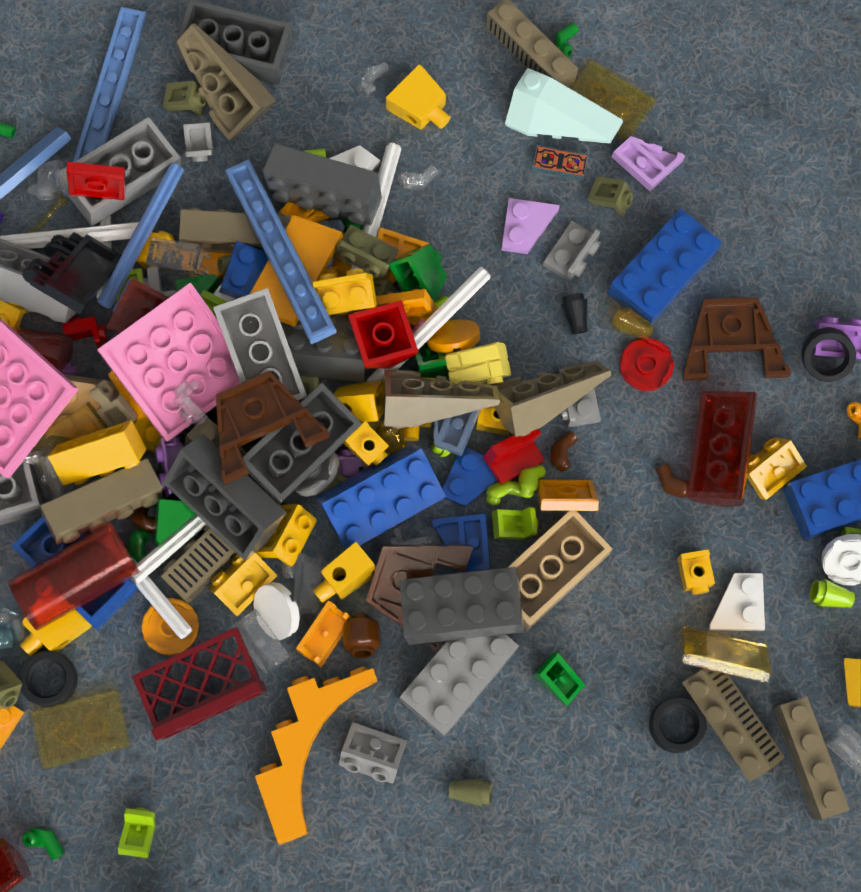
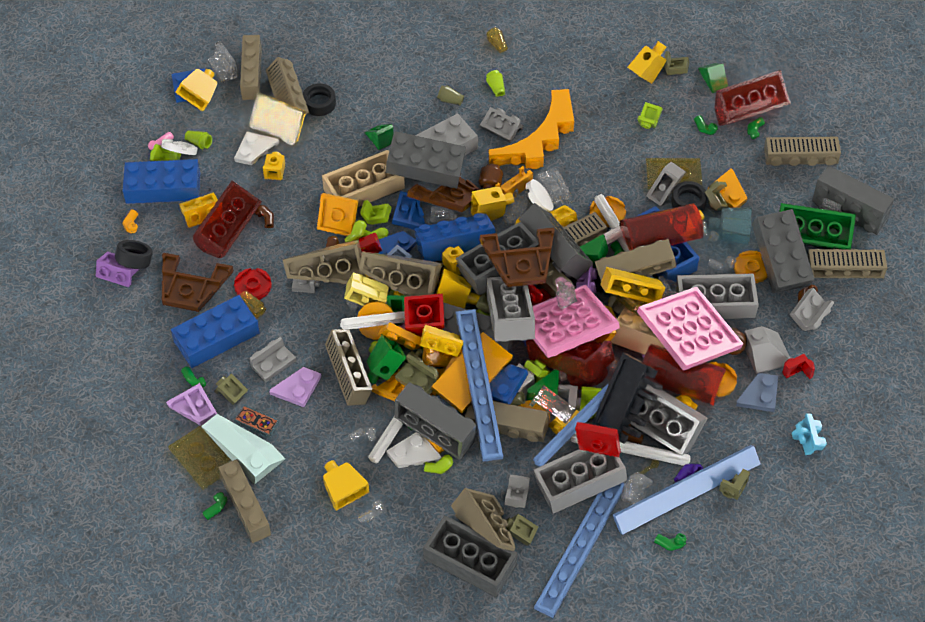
camera: 160 degrees left, 20 degrees down
(84, 690) = (665, 183): none -> light grey slope
(112, 409) = (616, 307): dark tan plate -> none
(206, 708) = (595, 159): dark red fence -> none
(404, 839) = (496, 83): none -> lime cone
(465, 253) = (348, 367): none -> dark tan brick
(576, 312) = (286, 323): black cone -> none
(665, 196) = (190, 377): none -> green arm

